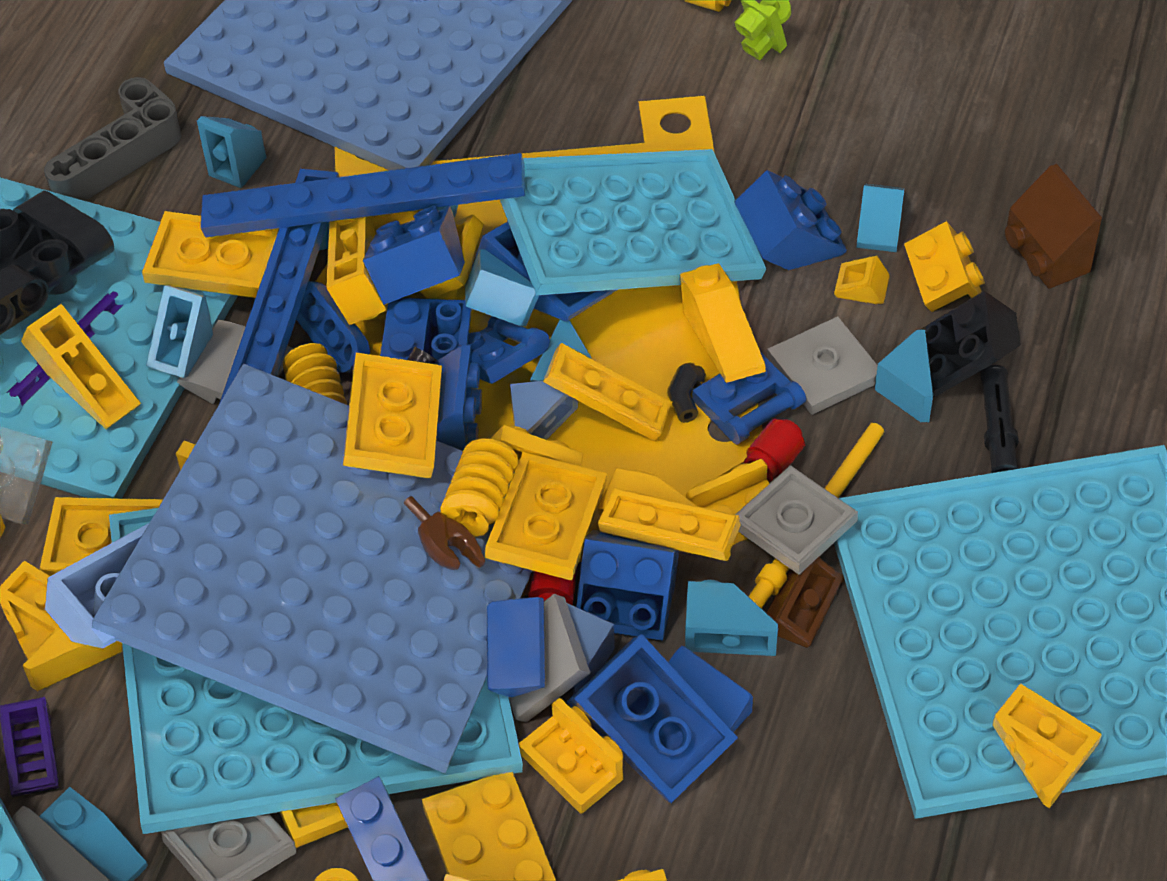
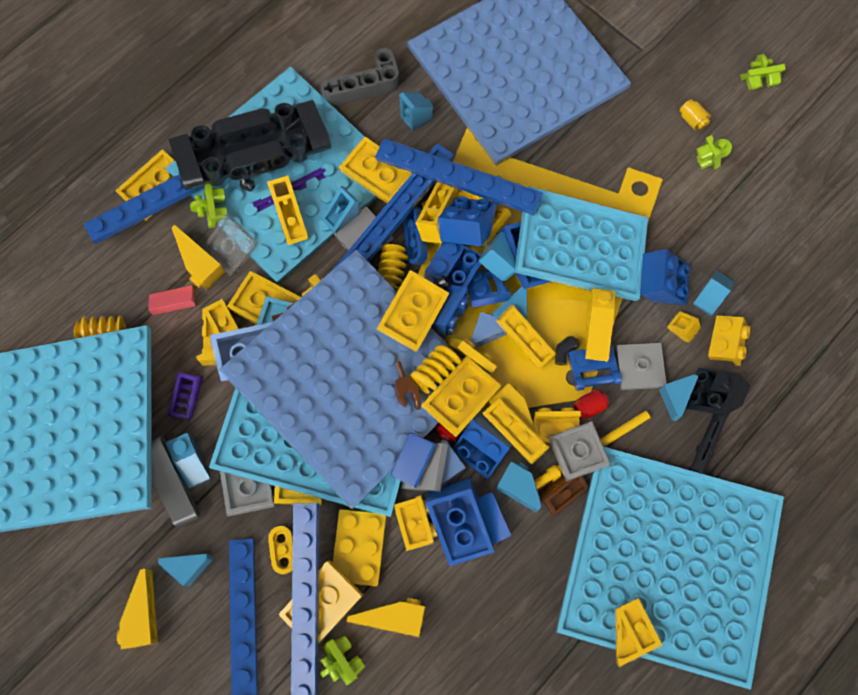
camera: 25 degrees right, 20 degrees up
(1054, 228) = (796, 346): reddish brown slope -> none

